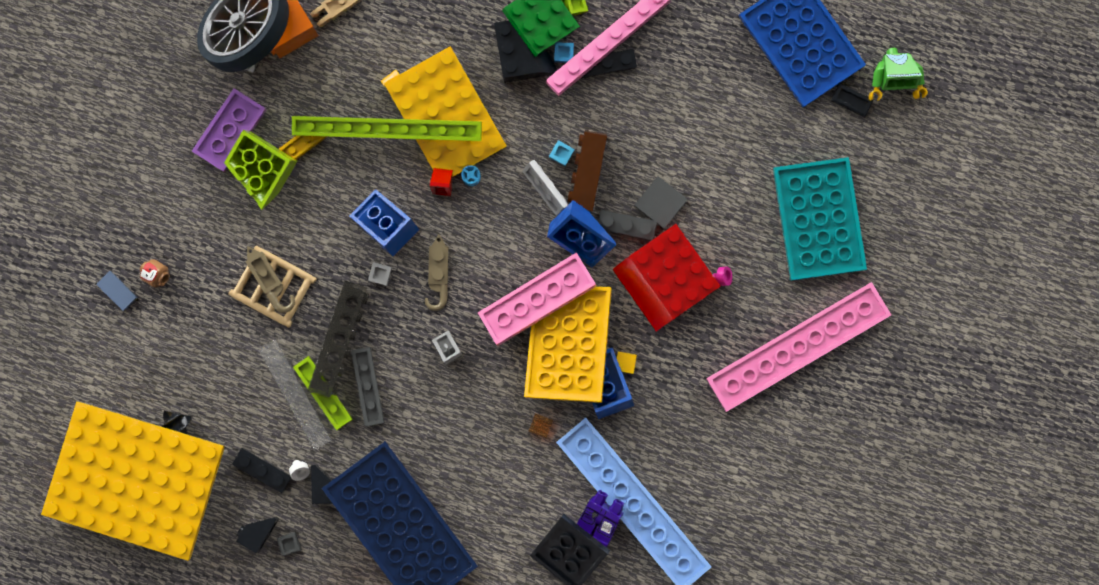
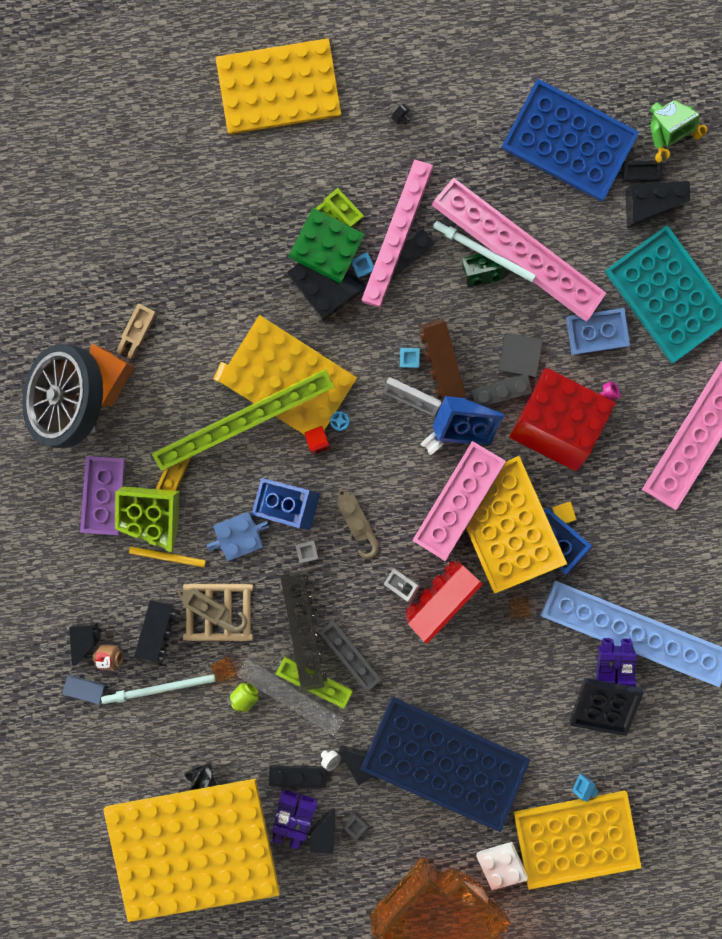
camera: 30 degrees left, 5 degrees up
(141, 247) = (82, 640): none -> black slope
(147, 315) = (122, 696): none -> light aqua bar
(207, 274) = (155, 633): none -> black wedge
(232, 508) = (292, 824): none -> dark purple hips
(249, 338) = (223, 669): none -> clear orange plate
(254, 372) = (244, 697): none -> lime head
(255, 214) = (167, 557): none -> yellow bar
(327, 228) = (238, 536): none -> medium blue plate
(474, 374) = (441, 600): none -> slope
(540, 238) = (432, 443): none -> white wheel
(656, 66) = (452, 233): none -> light aqua bar
(668, 110) = (481, 270): none -> dark green bracket
(707, 110) = (520, 248): none -> bright pink plate
(739, 218) = (600, 332): none -> medium blue plate
(849, 130) = (654, 199): none -> black wedge

